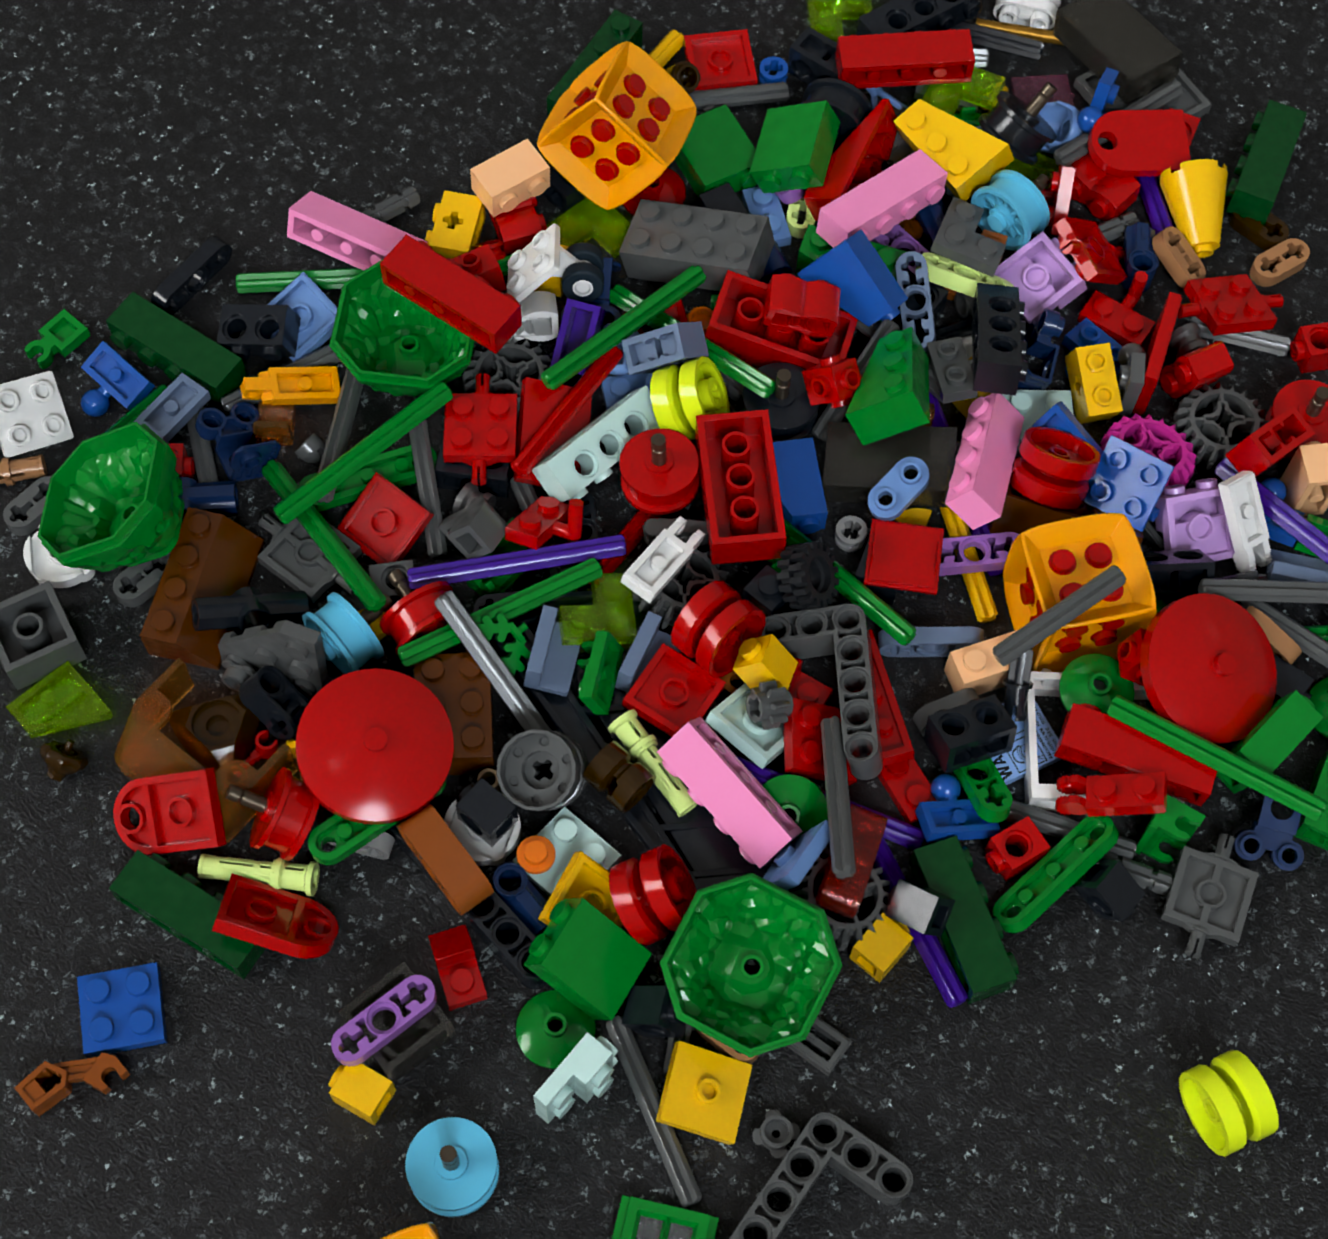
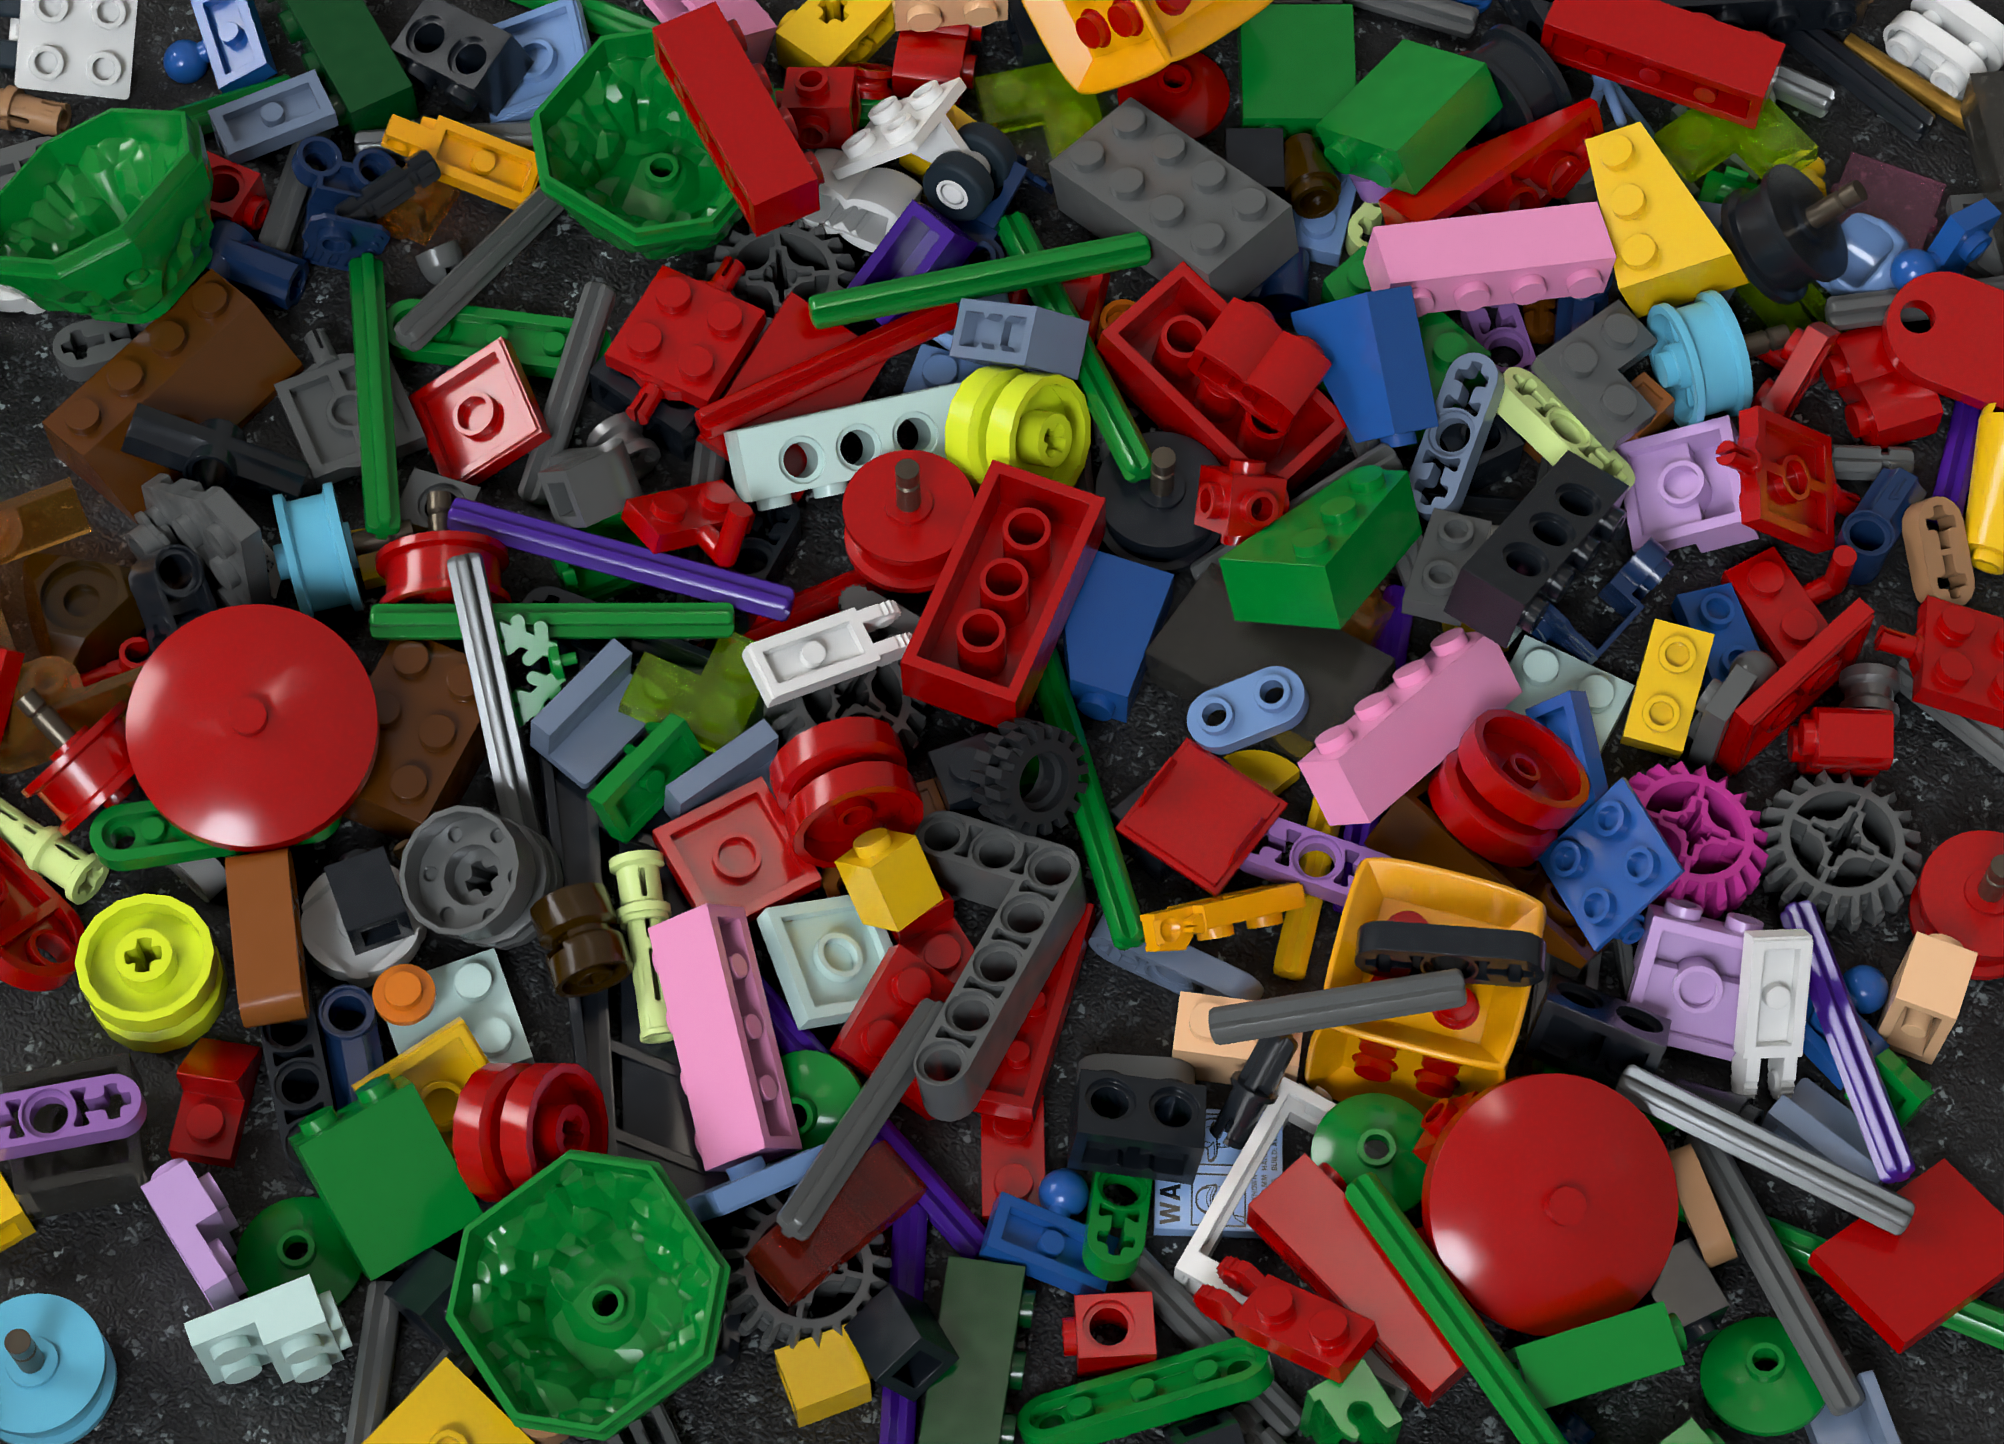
camera: 30 degrees right, 0 degrees up
(266, 418) = (391, 188): none -> black axle
(362, 453) = (492, 298): green axle -> none
(379, 890) = (151, 973): none -> neon yellow wheel
(494, 1039) = (198, 1227): none -> lavender plate
(758, 200) = (1309, 178): none -> dark brown cone
(769, 704) = (857, 939): dark grey gear -> none
(852, 523) = (1140, 739): light grey bush -> none
(942, 606) = (1214, 917): none -> light orange hinge
(1092, 561) = (1480, 953): none -> black beam
(1271, 442) = (1876, 907): red brick -> none

